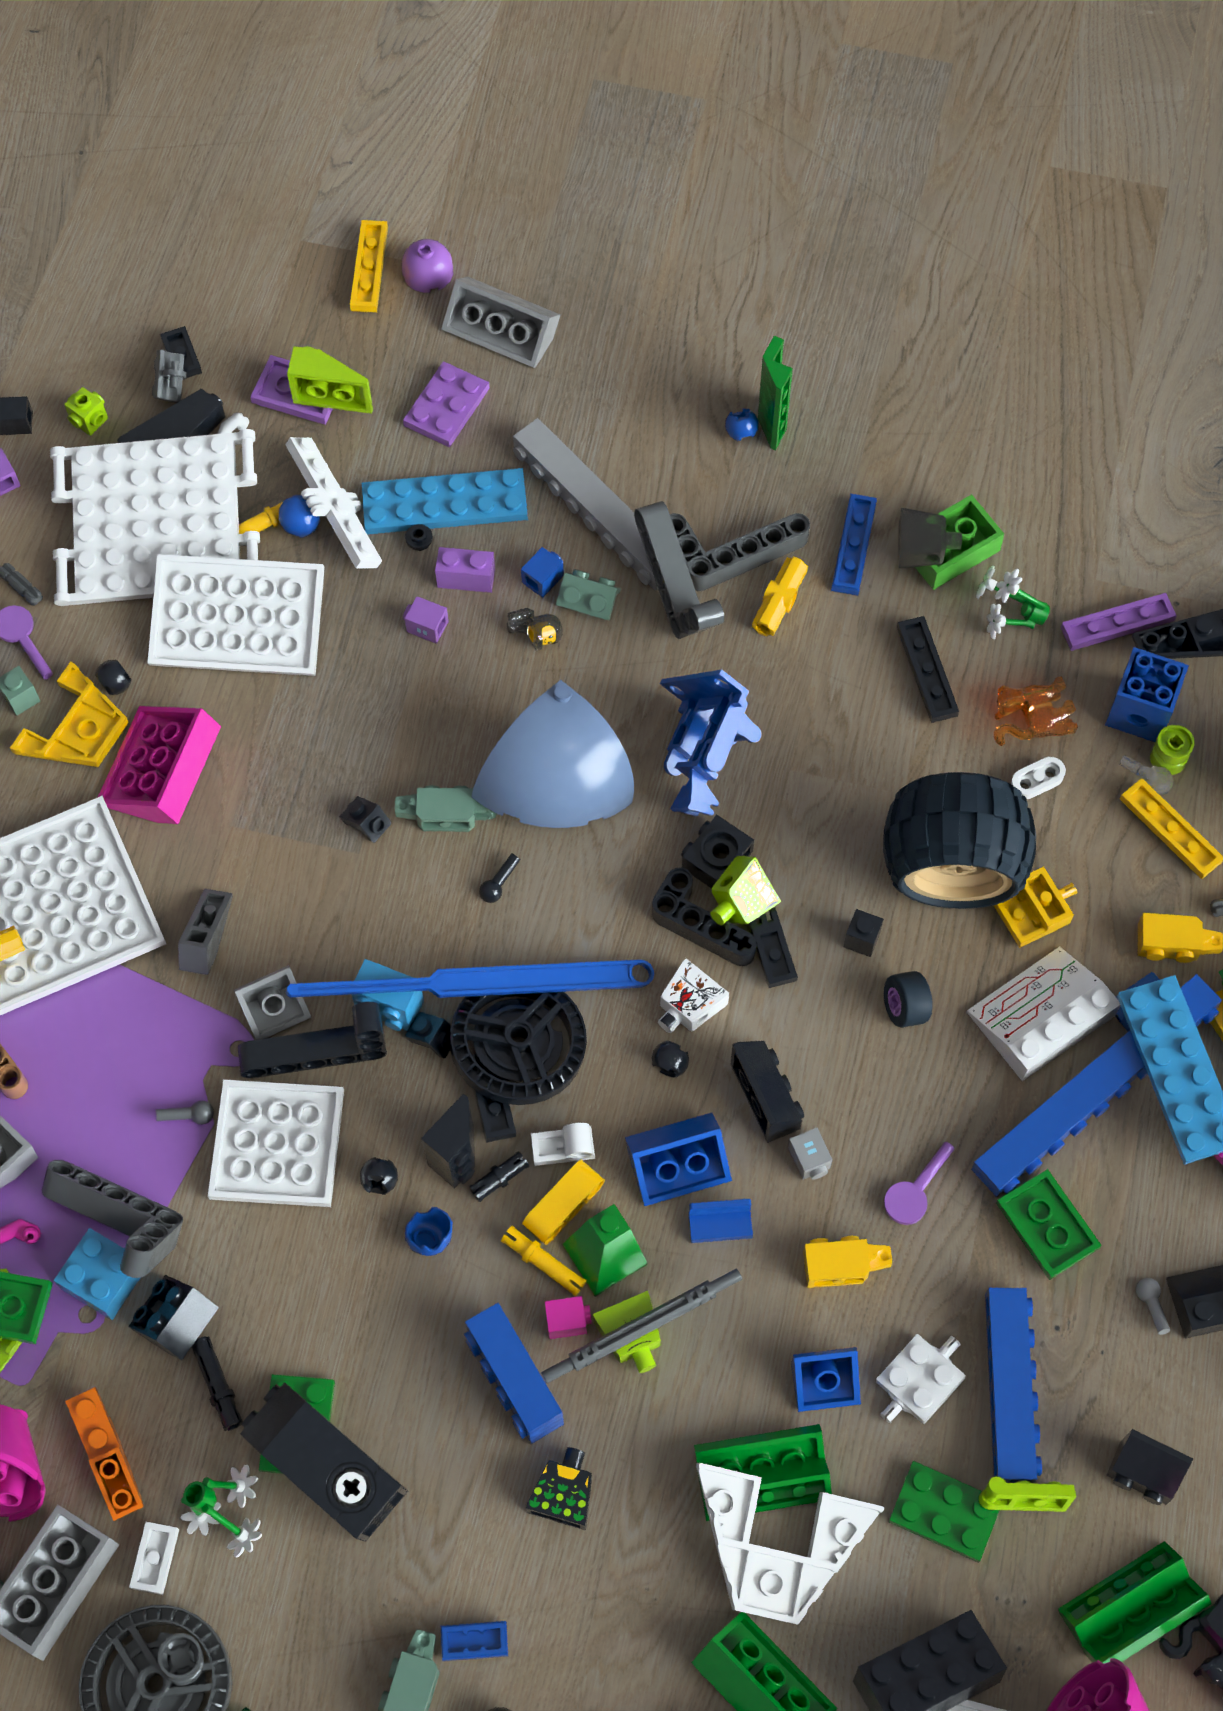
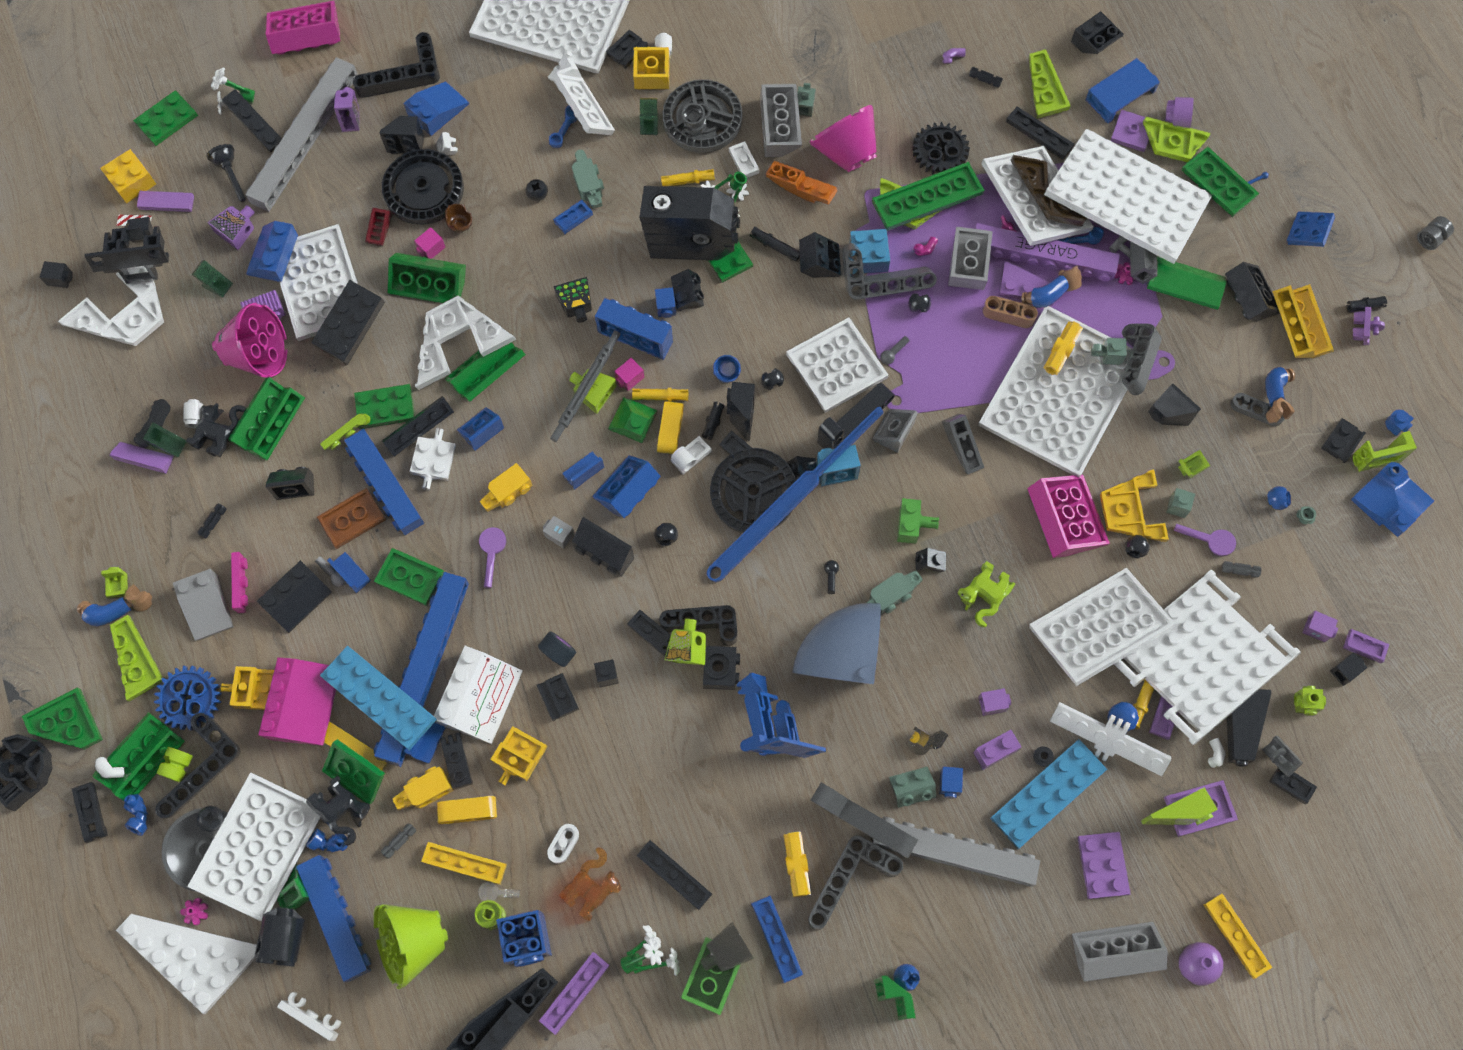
camera: 145 degrees right, 5 degrees up
(98, 1151) = (919, 302): none -> black piece
(247, 1581) = (686, 178): none -> yellow pin
(252, 496) = (1160, 725): none -> medium lavender plate
(326, 733) = (988, 590): none -> lime animal
(350, 875) = (912, 520): none -> bright green brick
(394, 1396) = (687, 289): none -> black bracket
(439, 1394) = (665, 302): none -> blue brick
(690, 998) = (677, 574): white torso -> none
(915, 1440) = (418, 426): none -> black plate
(942, 946) = (557, 697): none -> black plate
(959, 840) = (577, 743): black wheel -> none
(1084, 1366) = (351, 518): none -> dark orange tile
(1116, 949) = (456, 762): none -> black hinge
(1129, 1285) = (350, 572): none -> blue panel
(1135, 883) = (466, 810): none -> yellow beam

